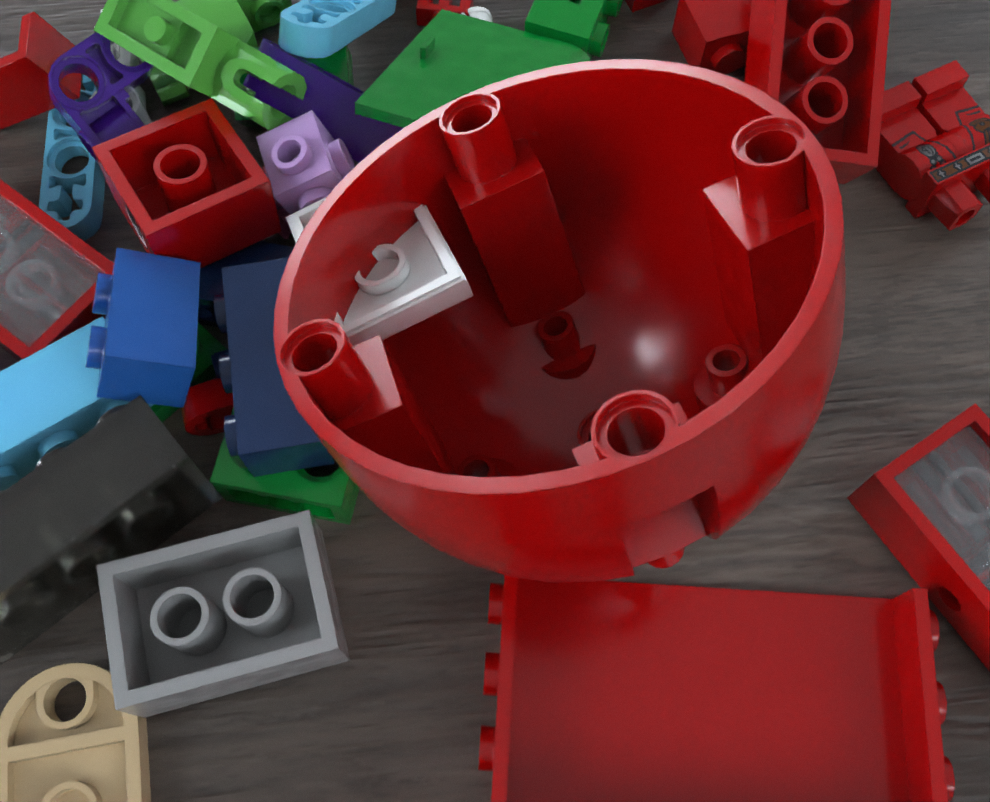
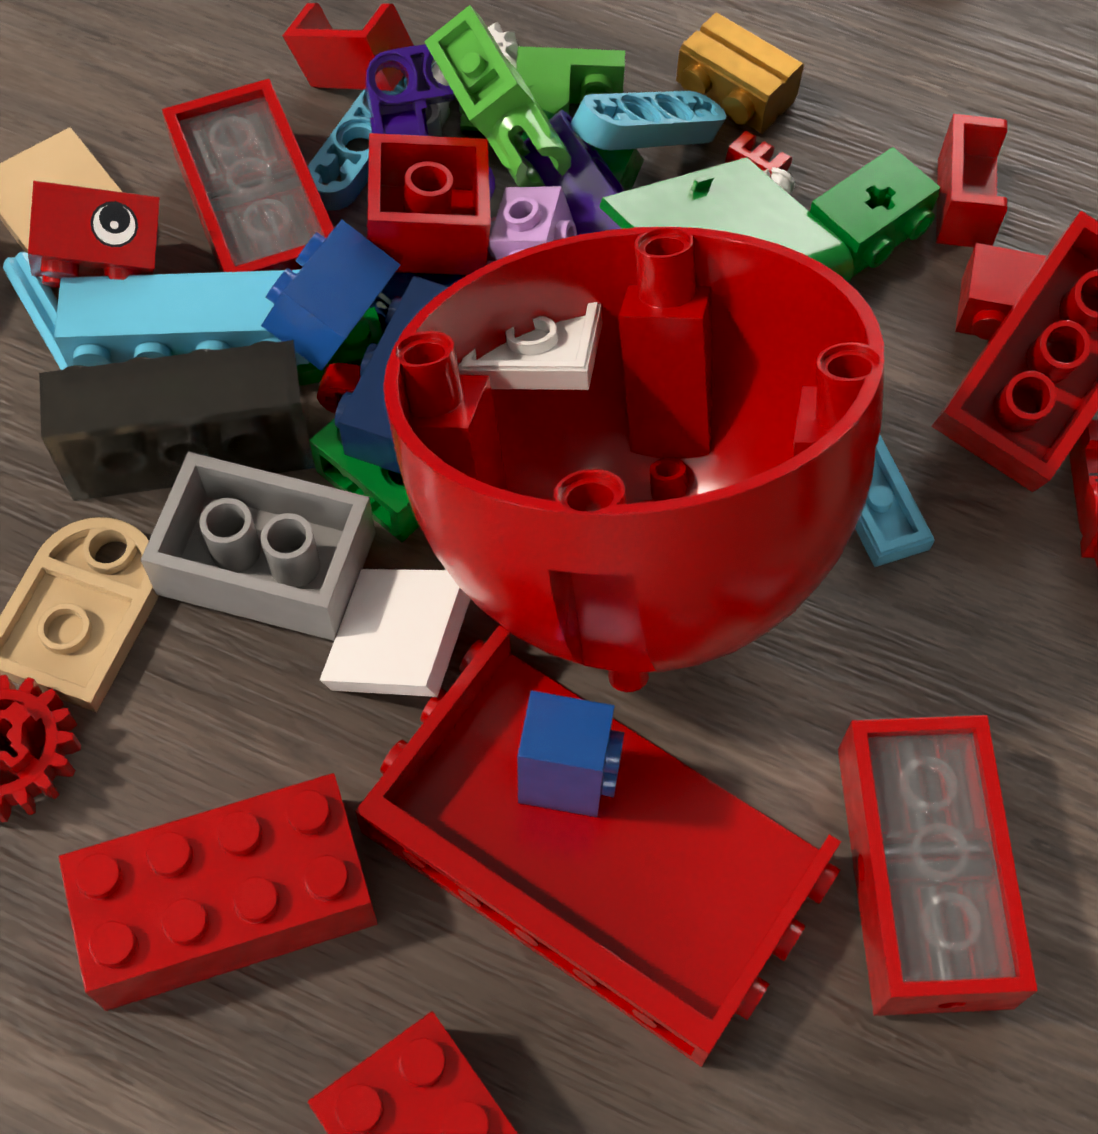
camera: 30 degrees right, 5 degrees down
(409, 624) = (397, 633): none -> white tile
(656, 654) = (568, 754): none -> blue brick

